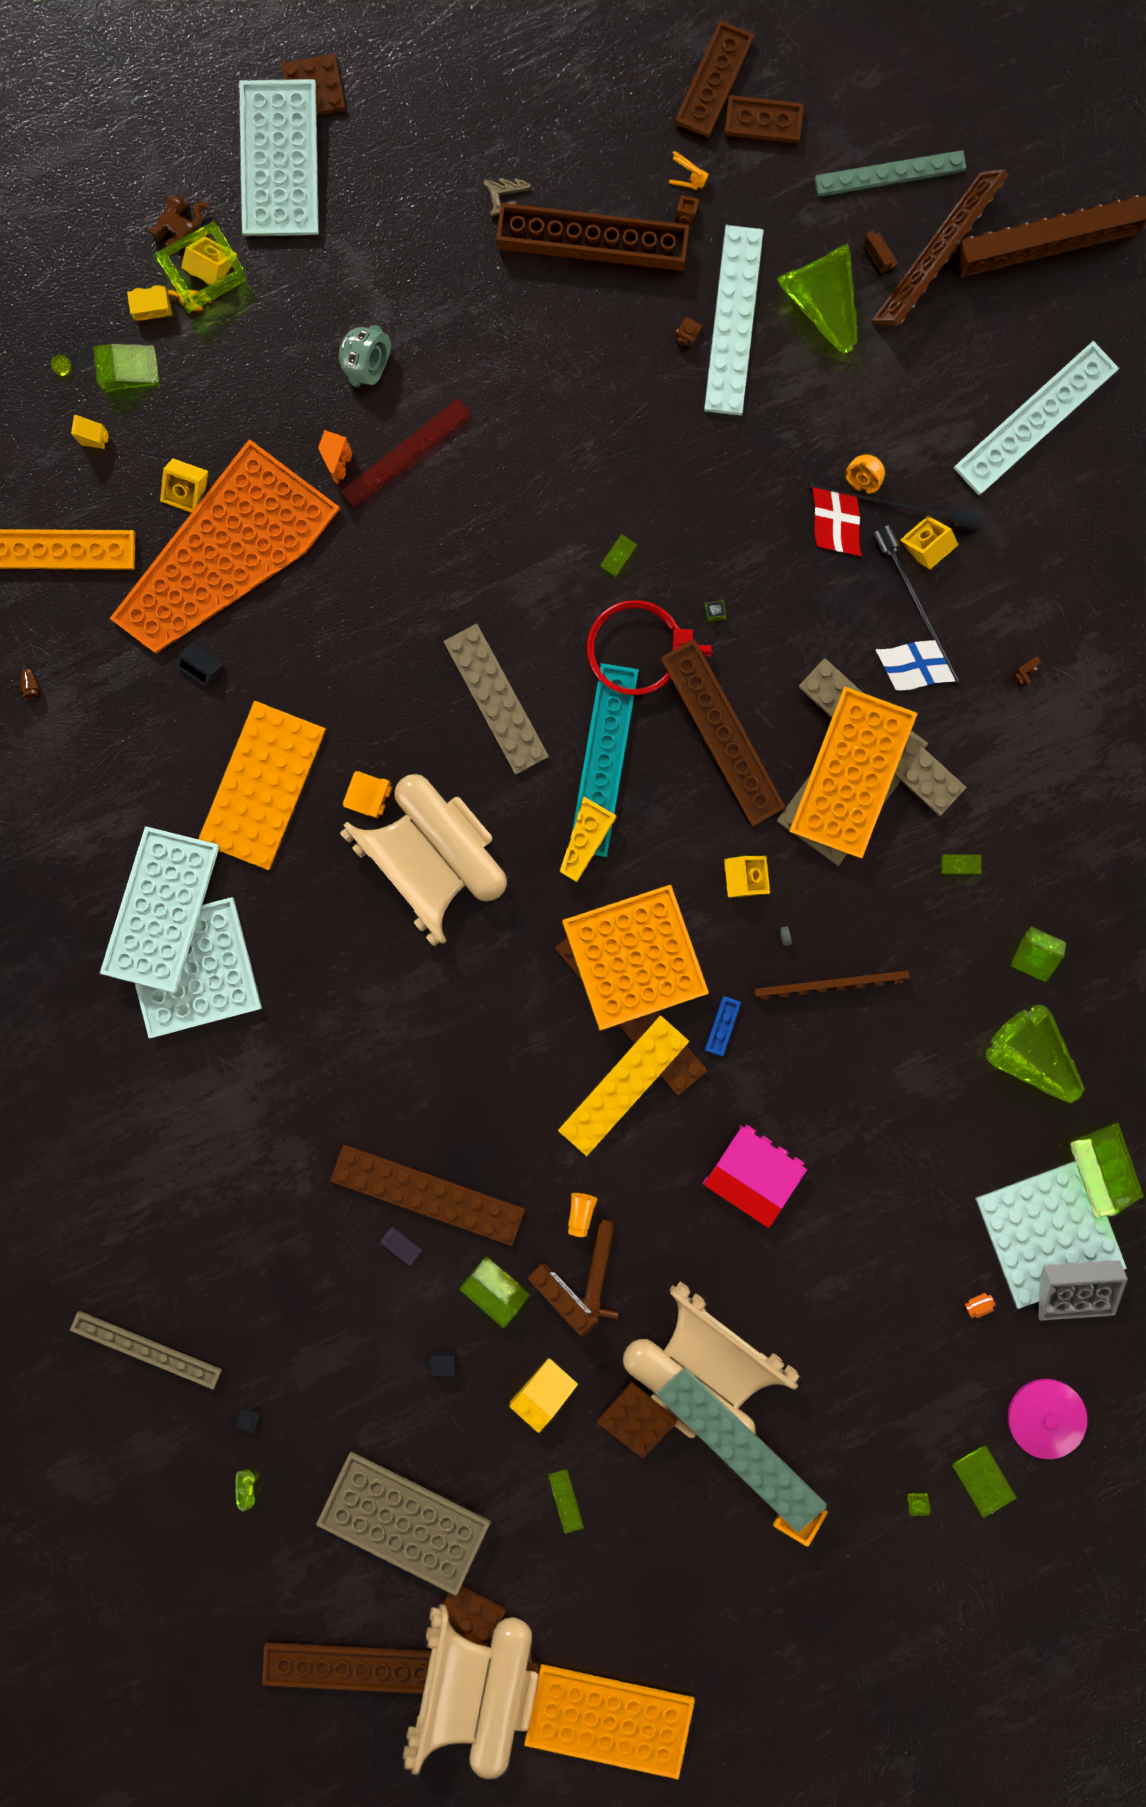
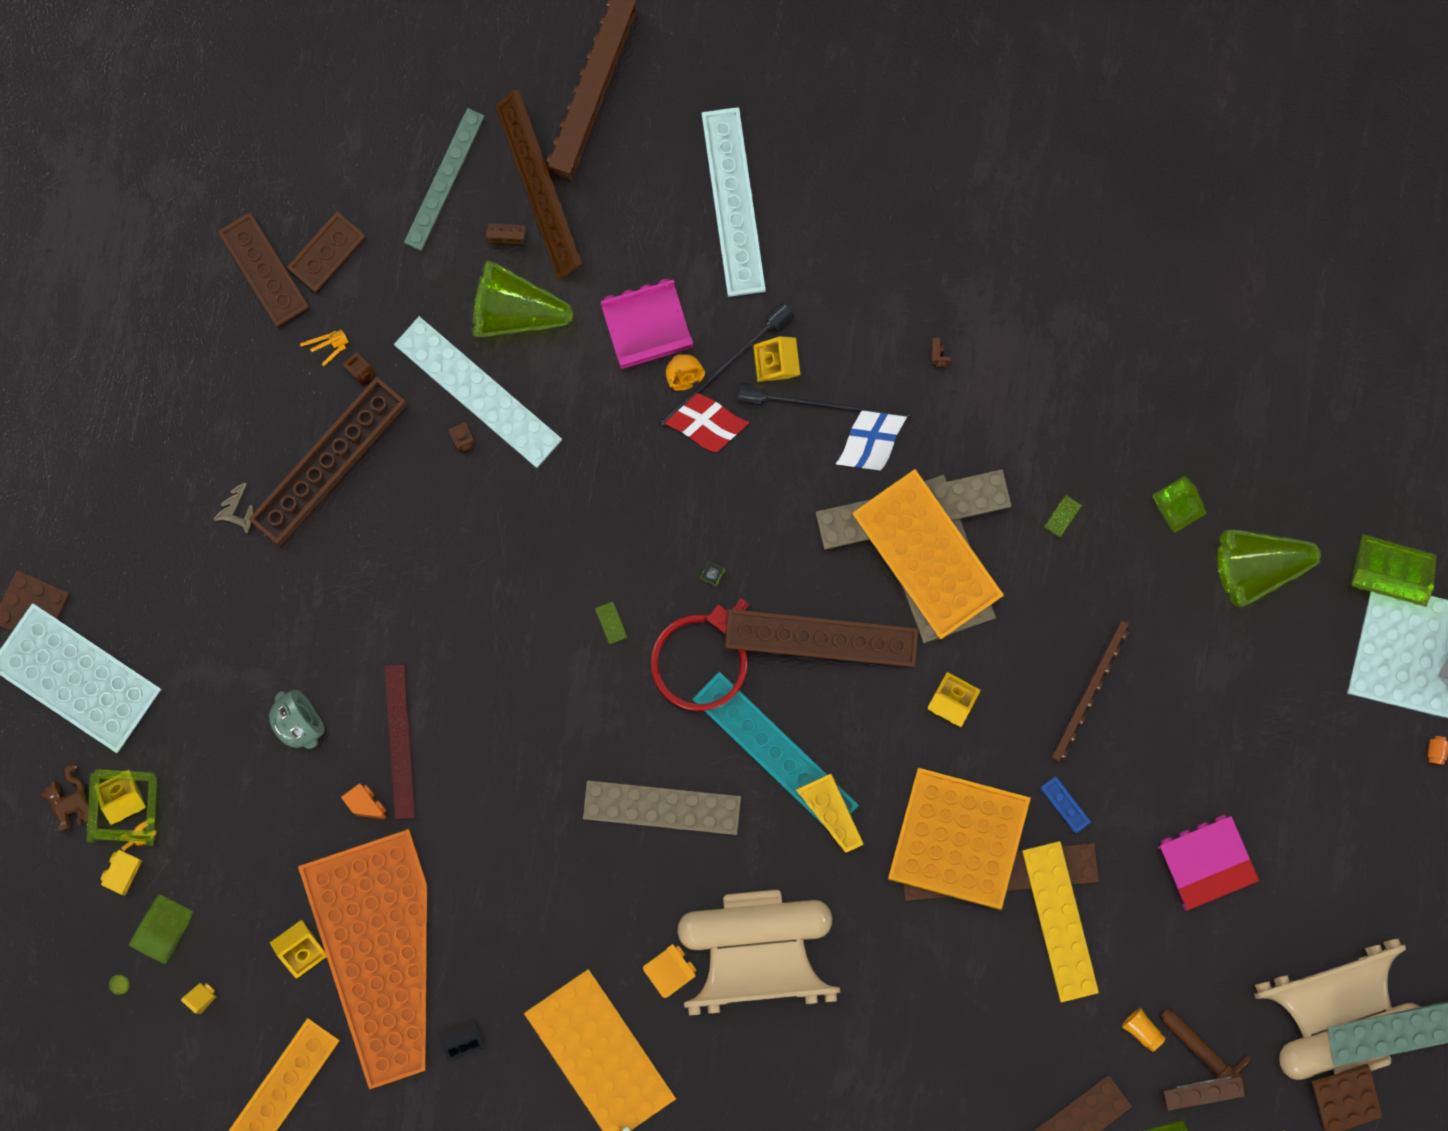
camera: 55 degrees left, 5 degrees down
(785, 936) = (1025, 701): dark grey tile -> none
(885, 416) = (646, 323): none -> dark pink panel

